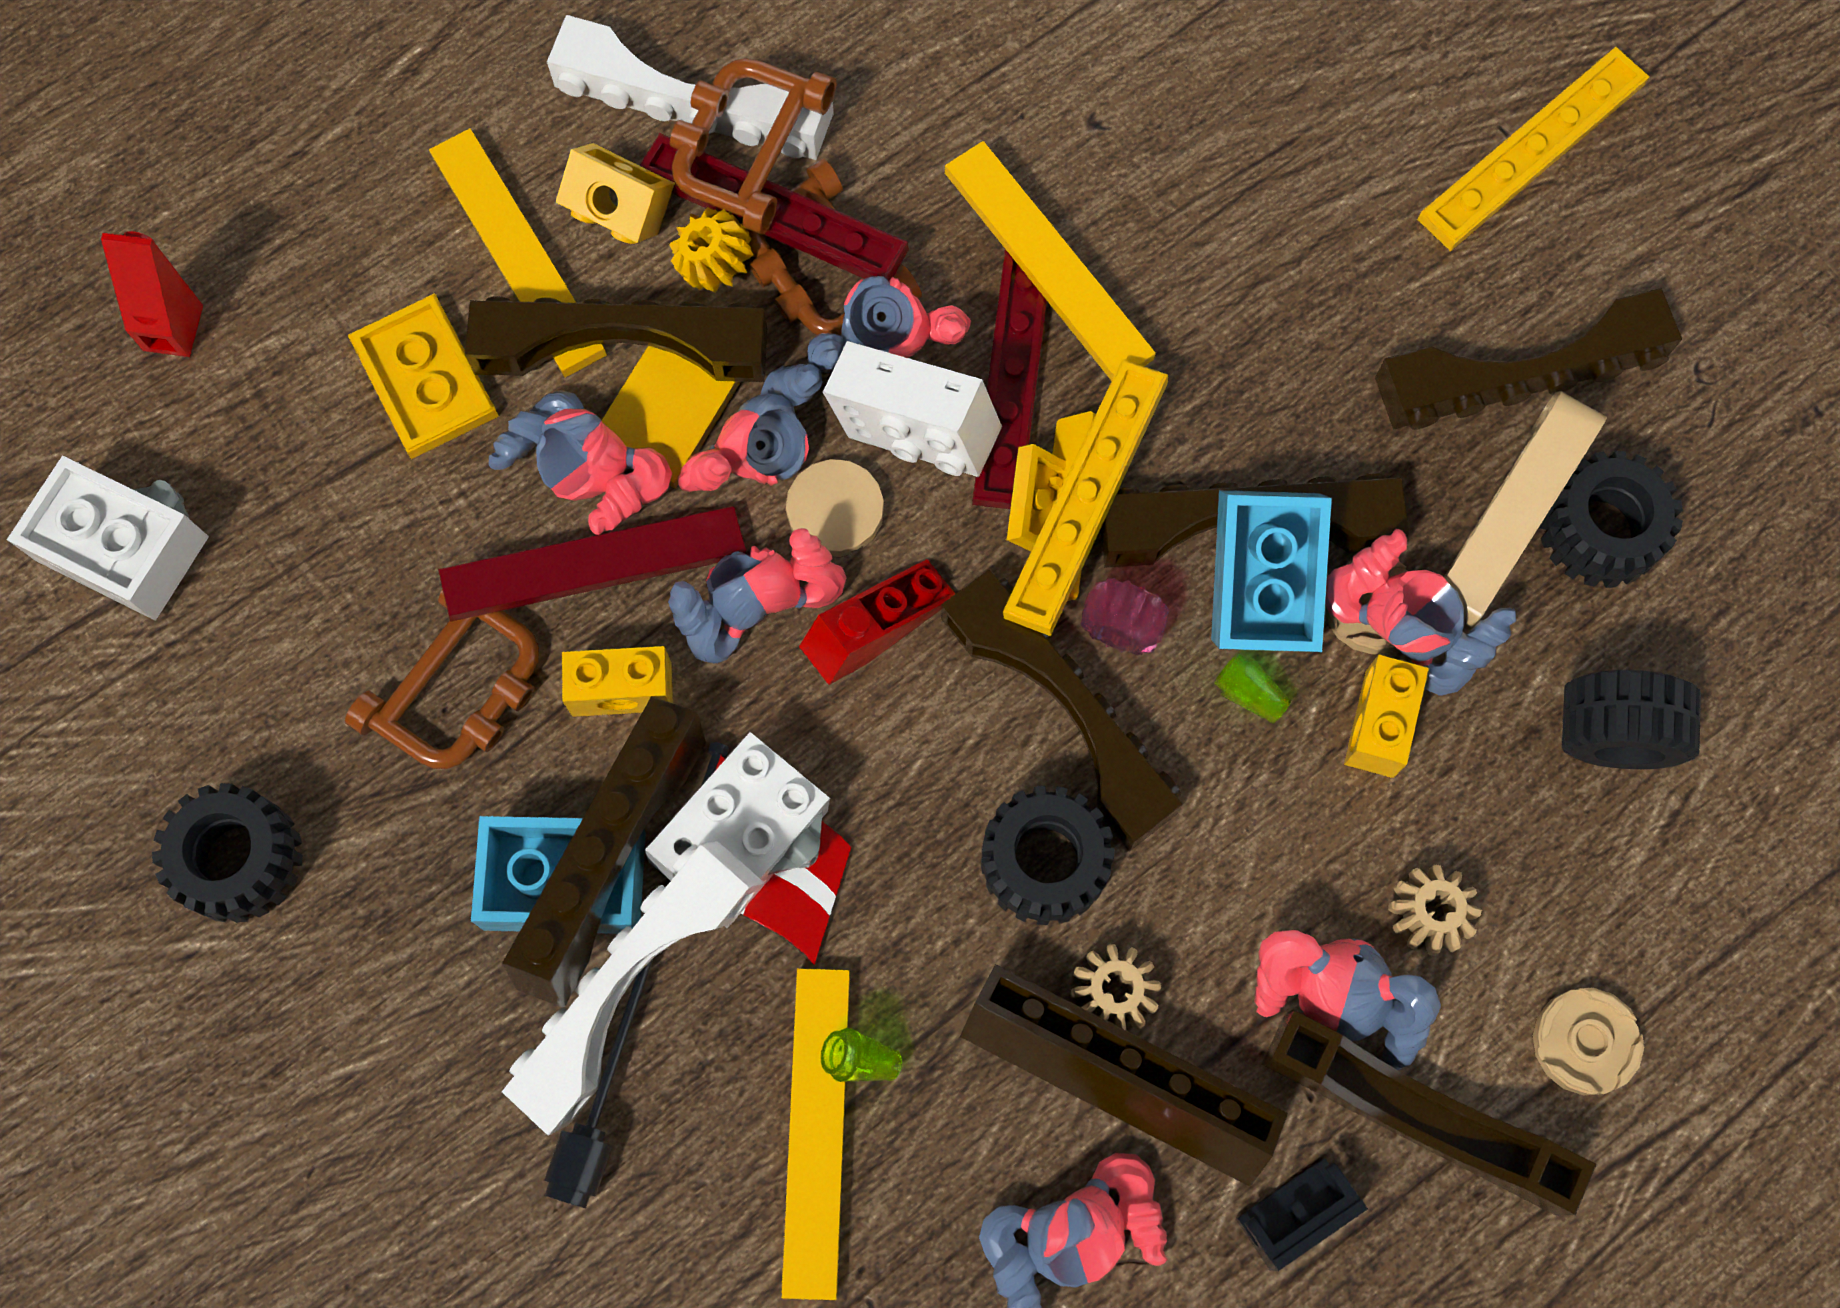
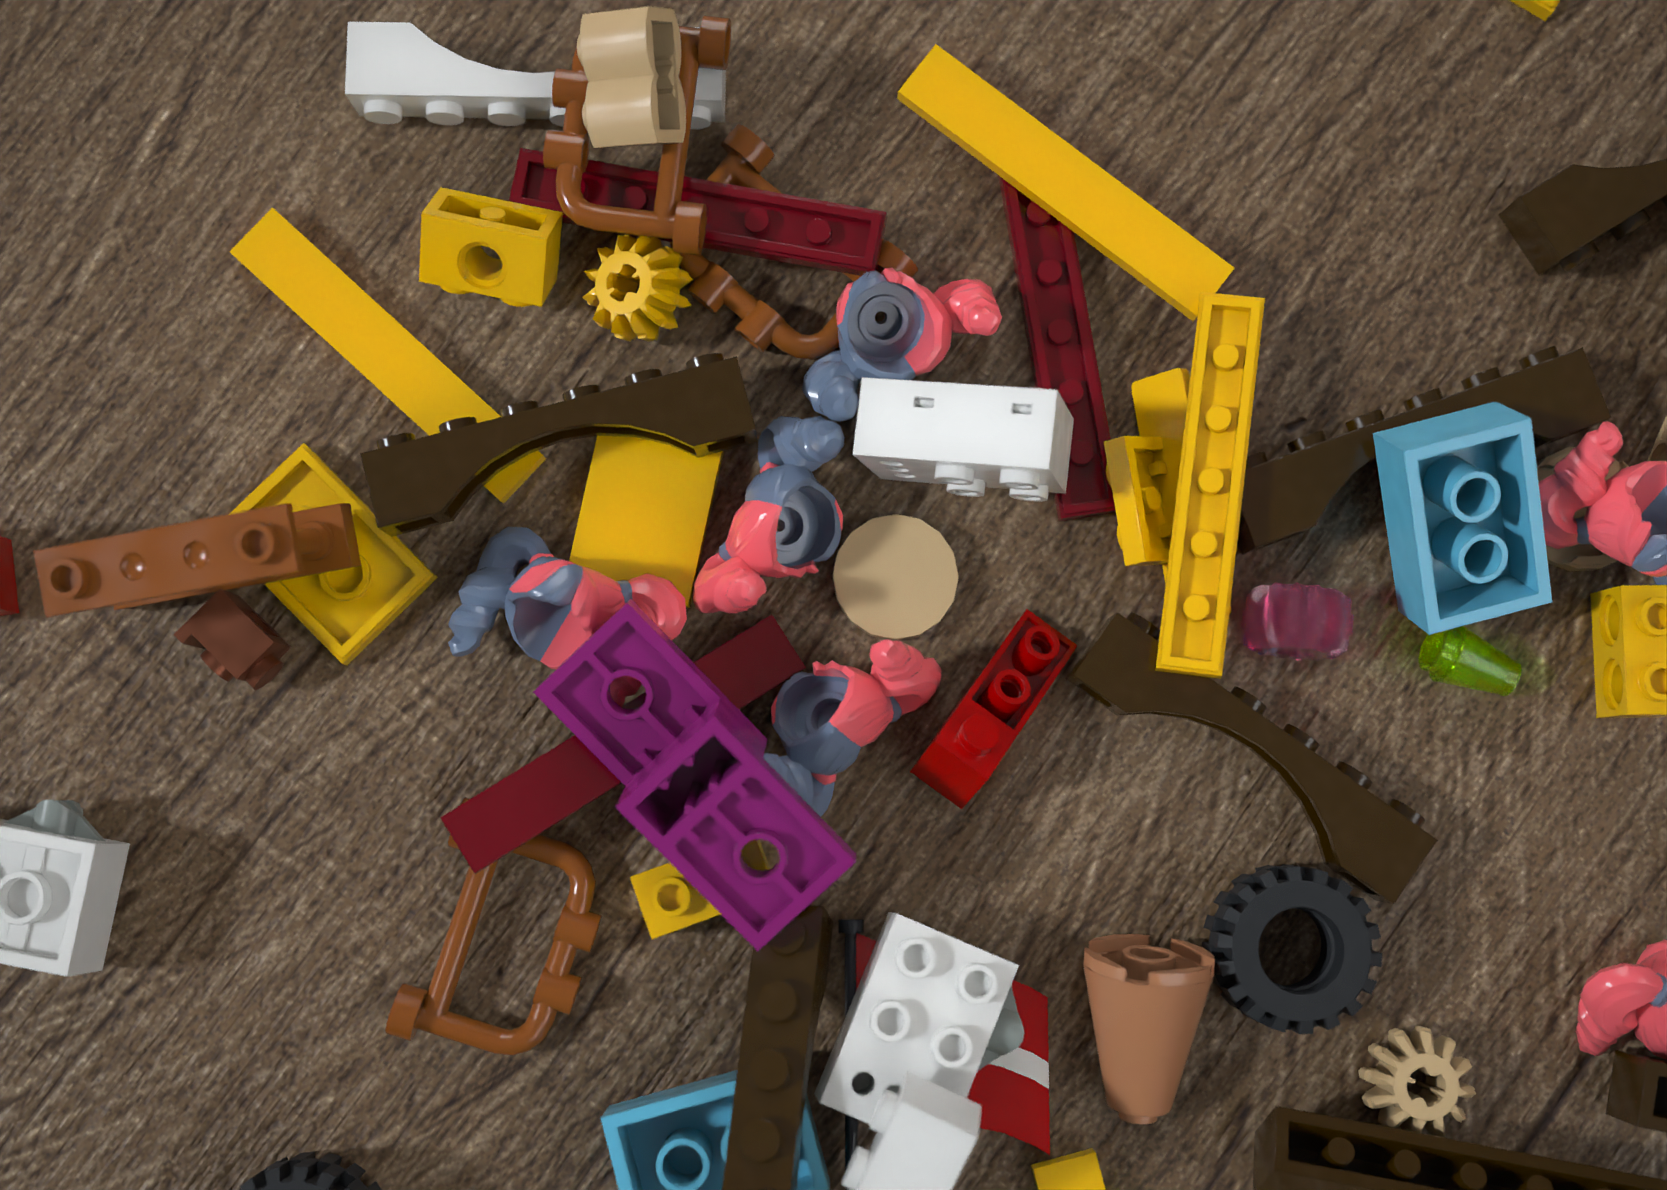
camera: 20 degrees left, 10 degrees up
(331, 337) = (196, 558): none -> dark orange fence
(335, 412) = (235, 640): none -> copper brick
(632, 584) = (695, 776): none -> magenta bracket
(750, 95) = (632, 77): none -> tan brick
(915, 878) = (1145, 1018): none -> nougat cone

